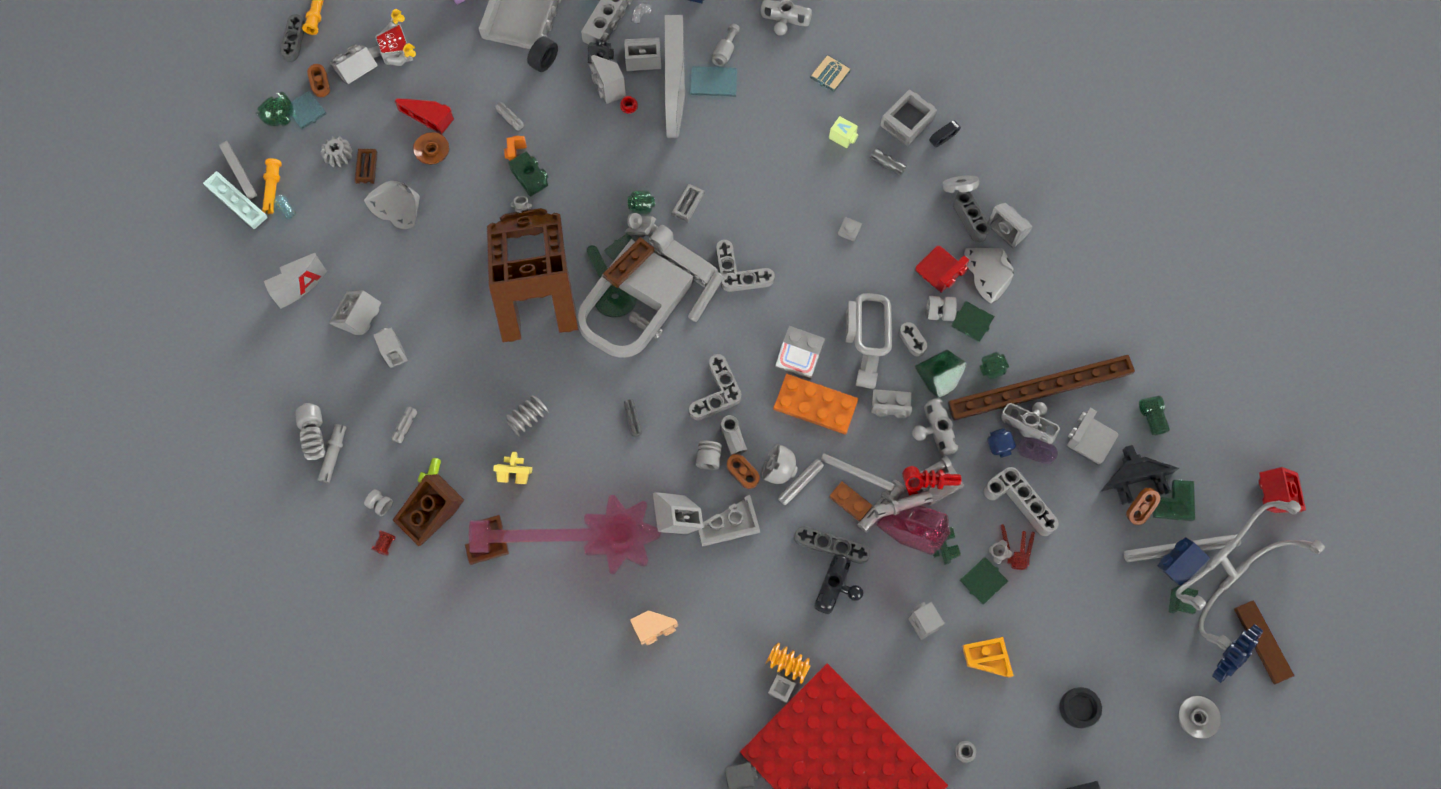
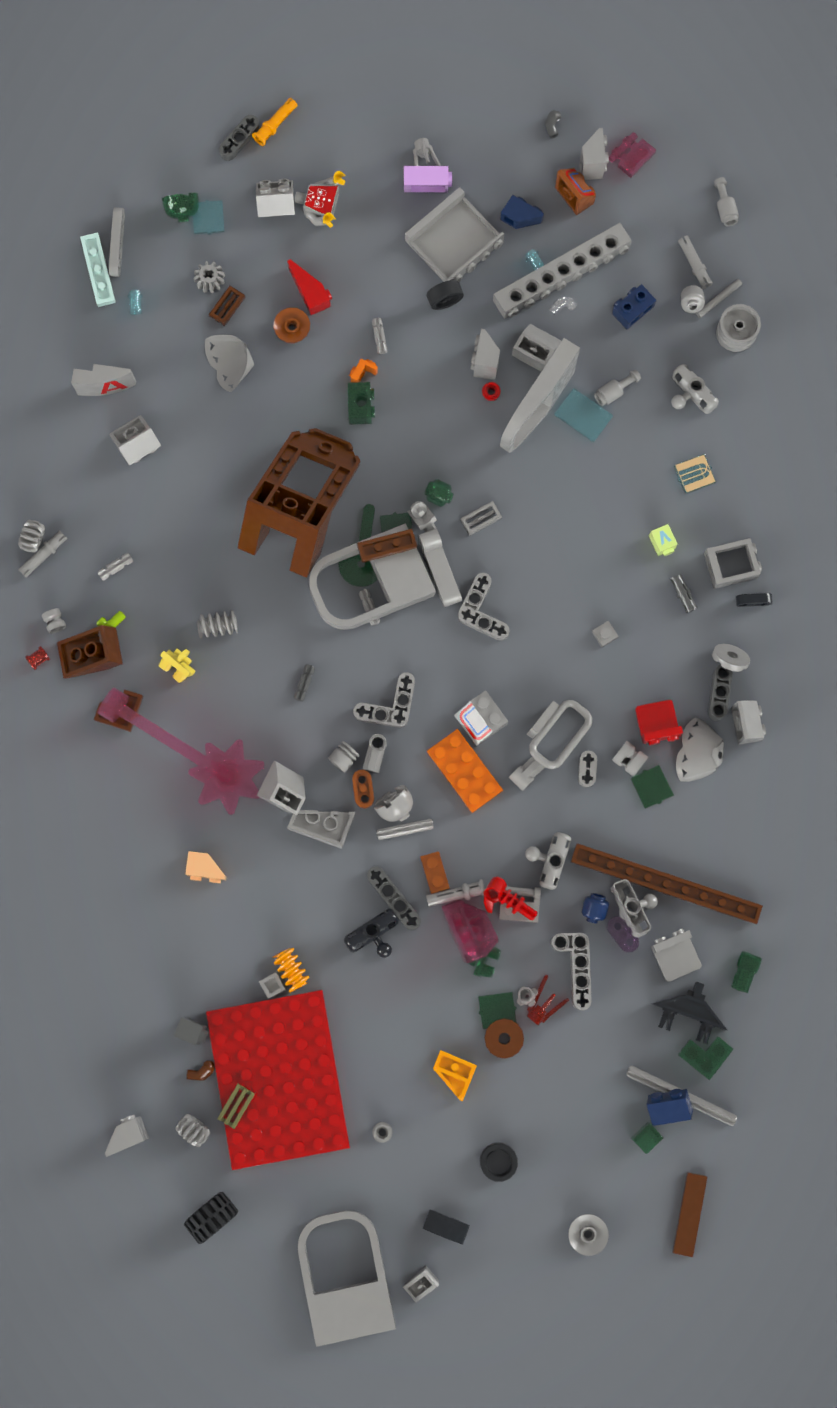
camera: 35 degrees right, 10 degrees up
(271, 179) = (140, 267): light orange pin -> none
(308, 416) = (42, 510): light grey head -> none
(318, 82) = (236, 197): dark orange plate -> none
(390, 347) = (143, 492): light grey brick -> none
(521, 204) = (335, 428): light grey plate -> none
(600, 46) = (497, 325): black brick -> none
(705, 296) = (435, 616): light grey axle -> none
(858, 472) = (456, 853): light grey bar -> none
(891, 403) = (528, 812): light grey bracket -> none
(896, 506) = (465, 902): light grey pin -> none
(925, 620) = (422, 1010): light grey brick -> none
(941, 372) = (589, 814): clear green slope -> none
(994, 365) = (638, 838): clear green head -> none
(1018, 596) = (510, 1048): none -> reddish brown tile
(1144, 507) = (674, 1040): dark orange plate -> none
(1198, 602) = (708, 1146): light grey bar -> none
(1237, 653) = (652, 1208): dark blue gear -> none
(1281, 485) = (804, 1107): red slope -> none

